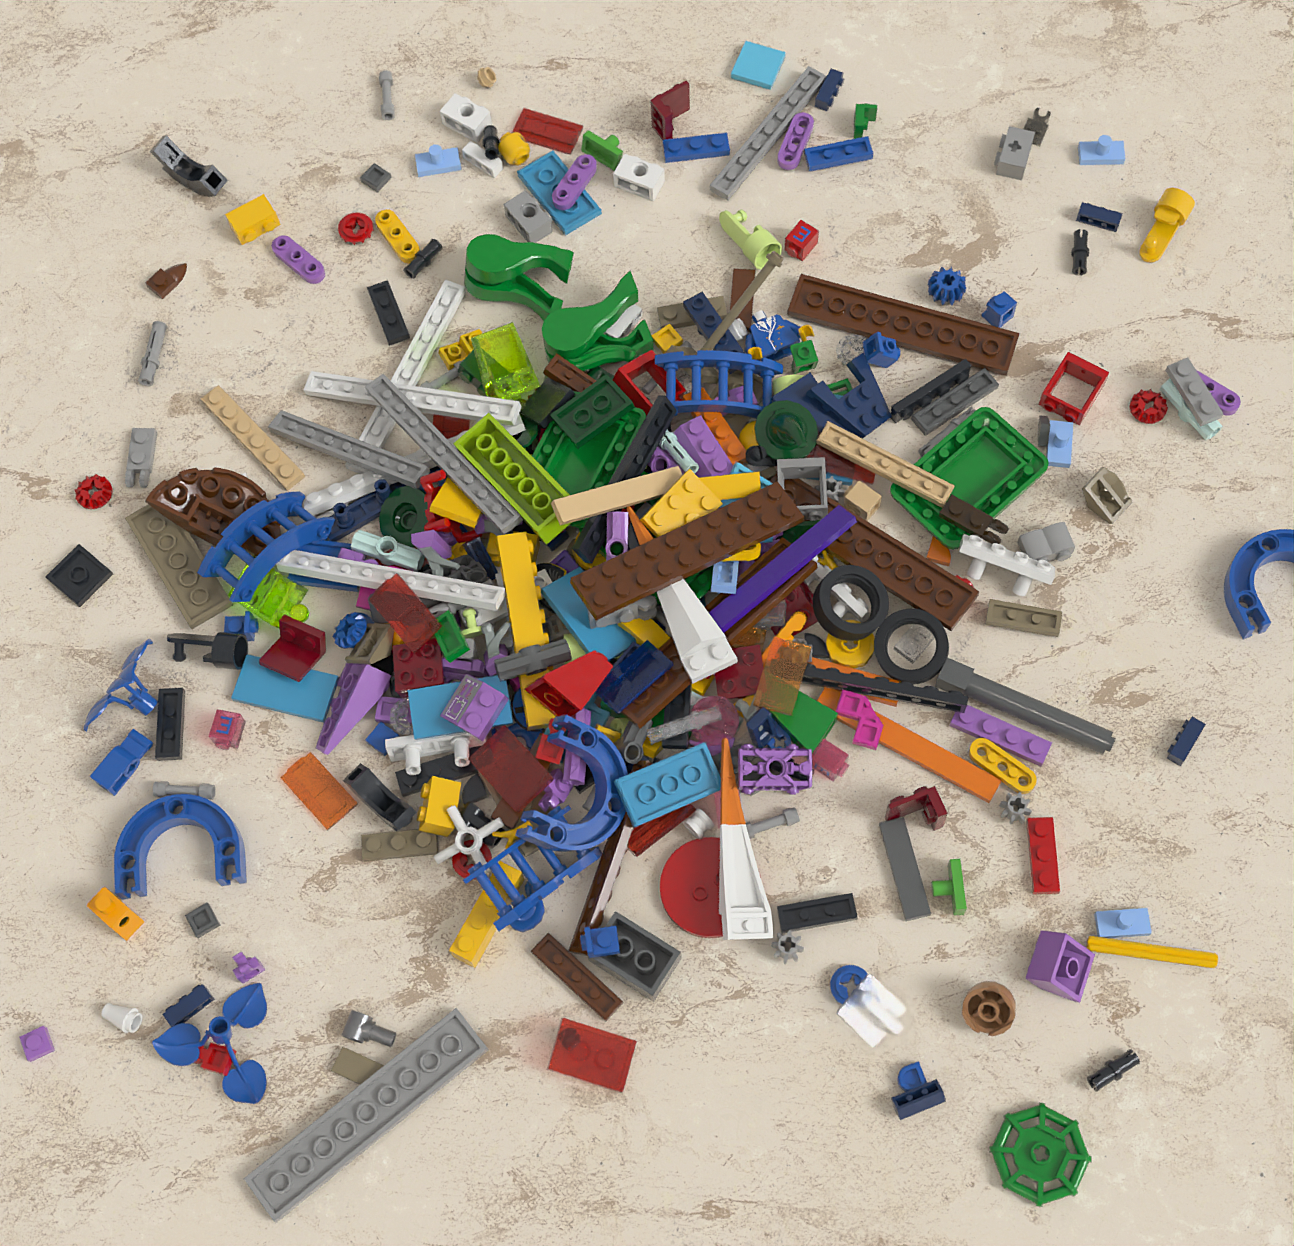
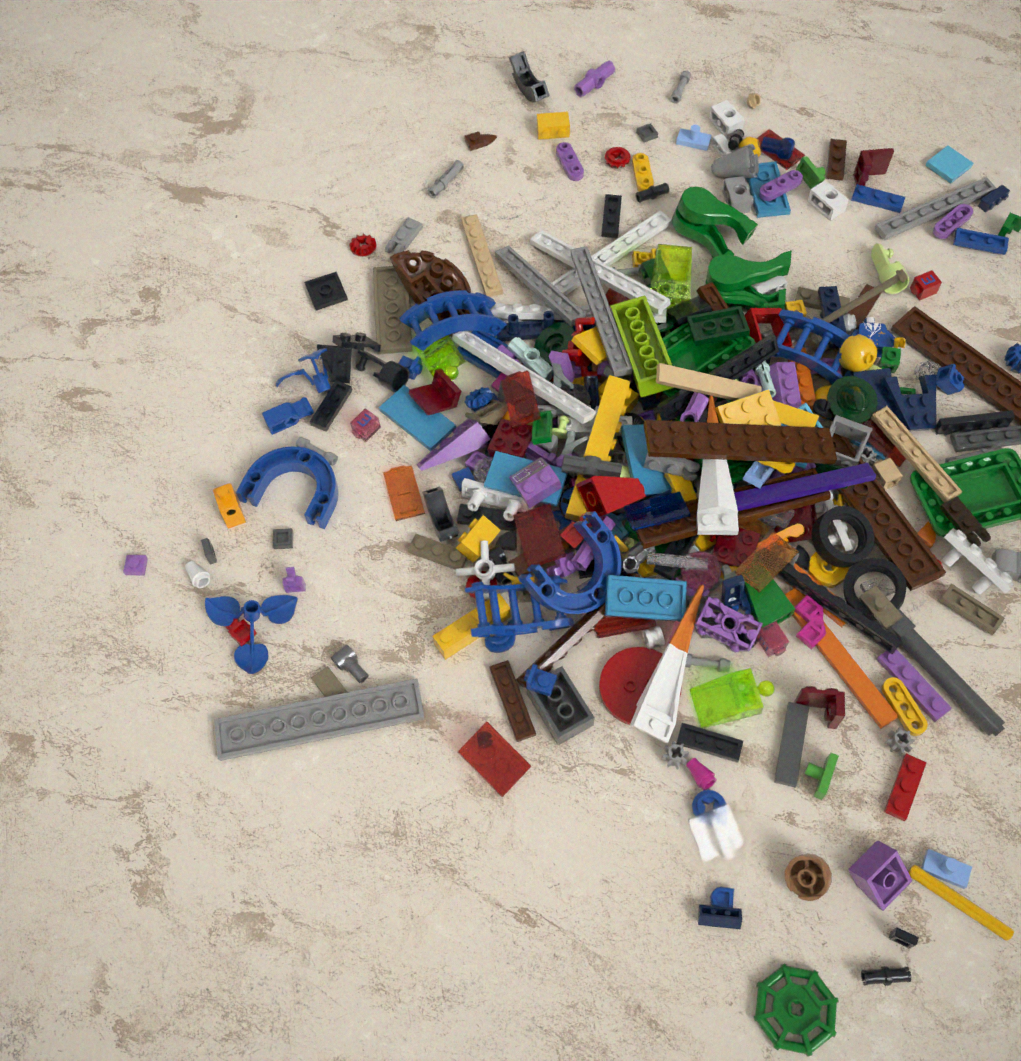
camera: 25 degrees right, 5 degrees down
(121, 981) = (209, 551): none -> dark grey tile
(151, 667) = (337, 362): none -> black wing
(157, 628) = (356, 341): none -> black wing
(188, 1005) = (243, 588): dark blue piece -> none
(272, 130) = (594, 78): none -> medium lavender piece
(509, 177) = (737, 163): none -> light grey cone
(553, 130) = (783, 148): none -> clear blue piece
(623, 115) = (836, 159): none -> reddish brown plate
(767, 371) = (858, 353): none -> yellow cylinder
(810, 857) = (724, 702): none -> clear neon green slope
(825, 953) = (702, 775): none -> dark pink cone
(928, 666) = (880, 607): none -> dark tan tile
(1113, 1021) = (903, 938): none -> black tile

